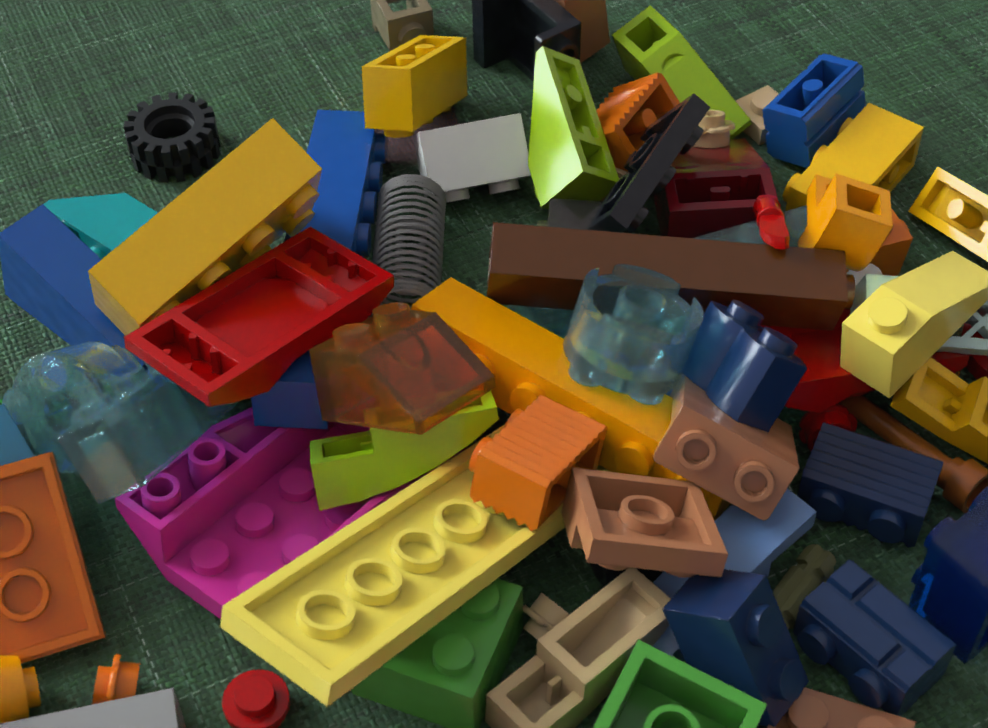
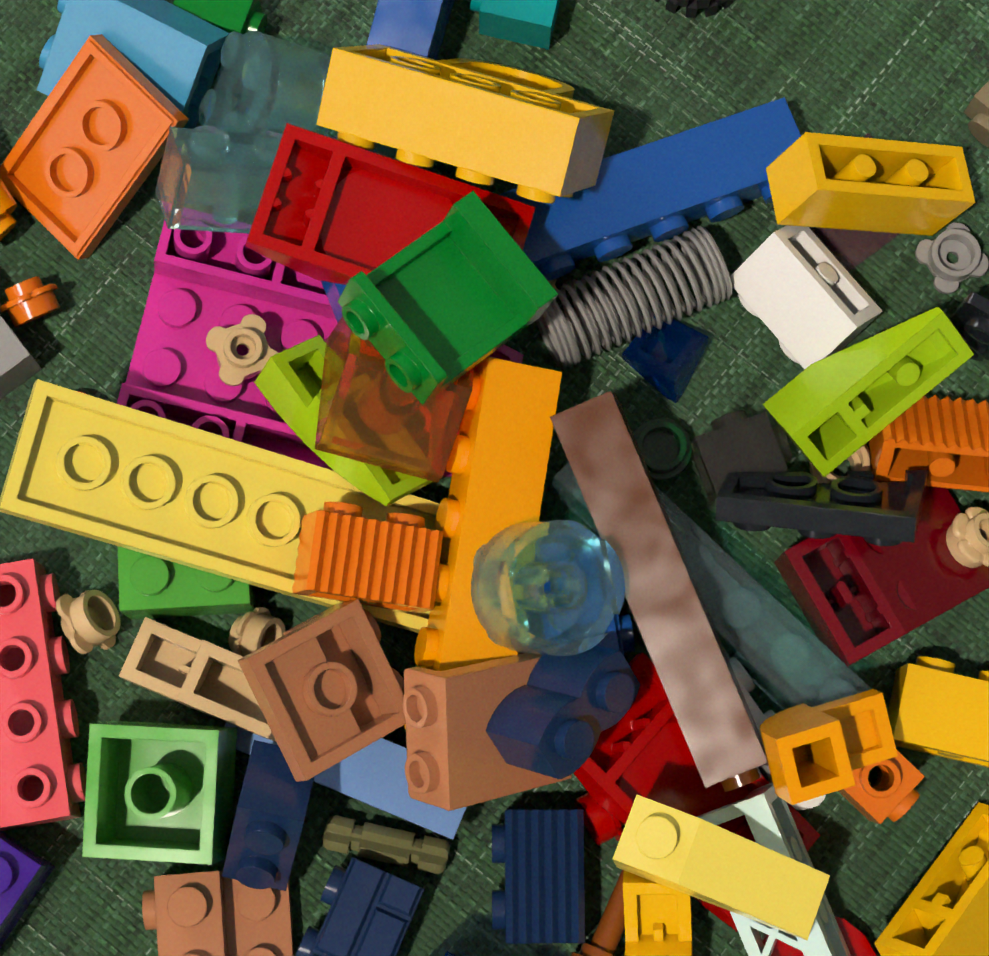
camera: 60 degrees right, 30 degrees up
(283, 512) = (224, 343): none -> tan plate
(355, 272) = (446, 300): none -> green panel
(465, 259) = (667, 357): none -> clear blue slope
(491, 86) = (958, 241): none -> light grey plate
(771, 221) = (785, 669): red piece -> none

